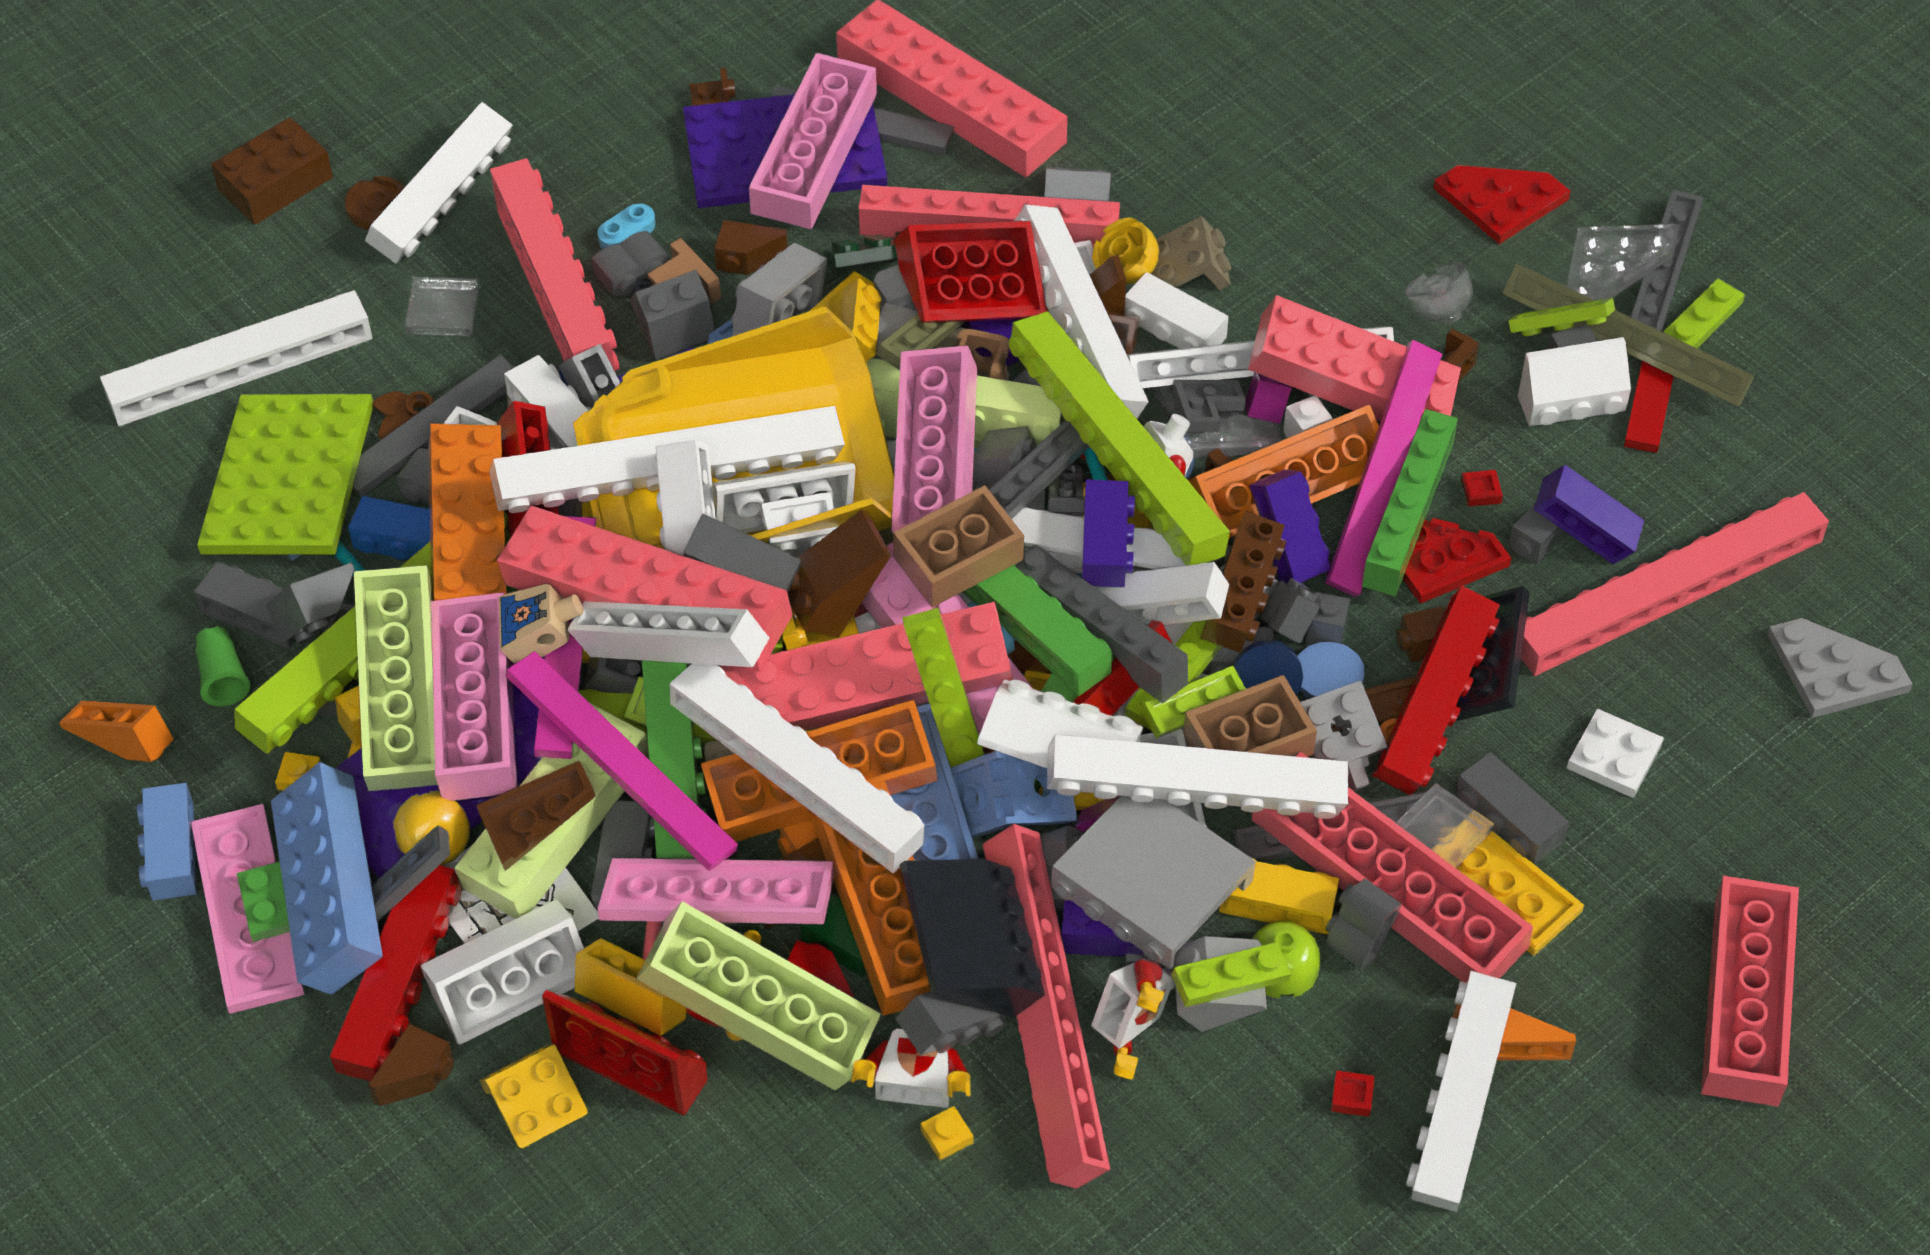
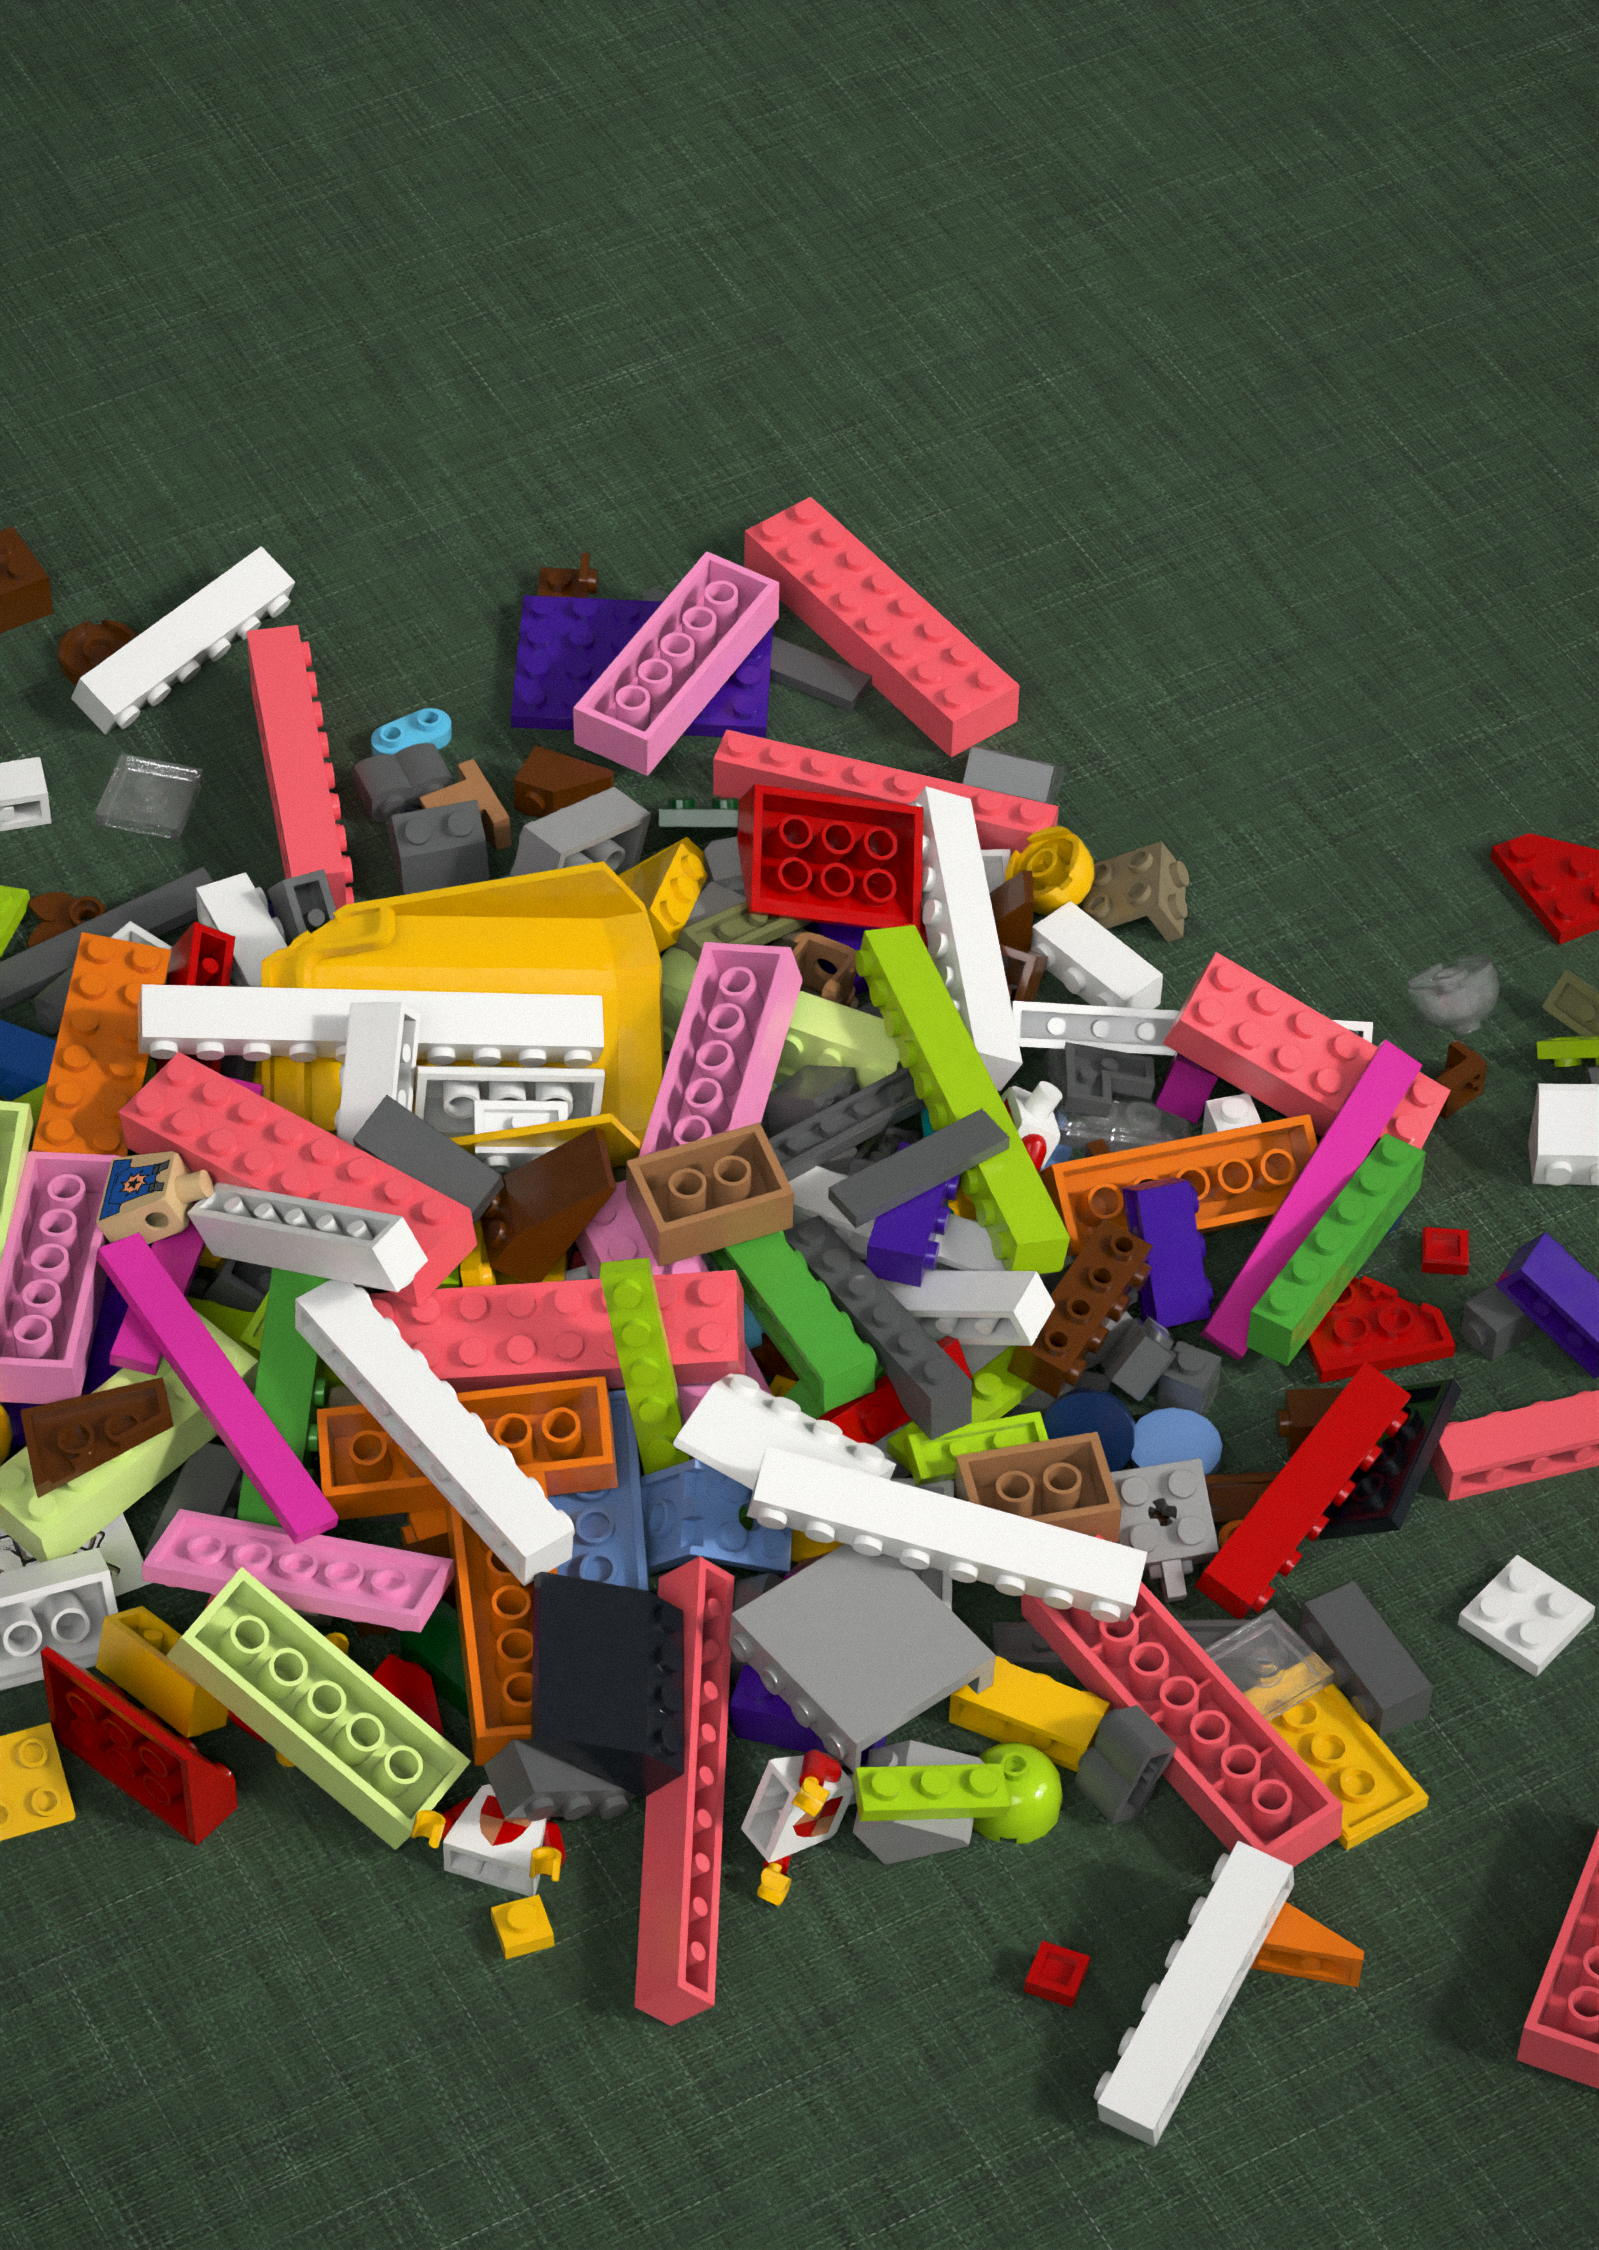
camera: 10 degrees right, 5 degrees down
(1106, 498) = (918, 1168): none -> dark grey tile

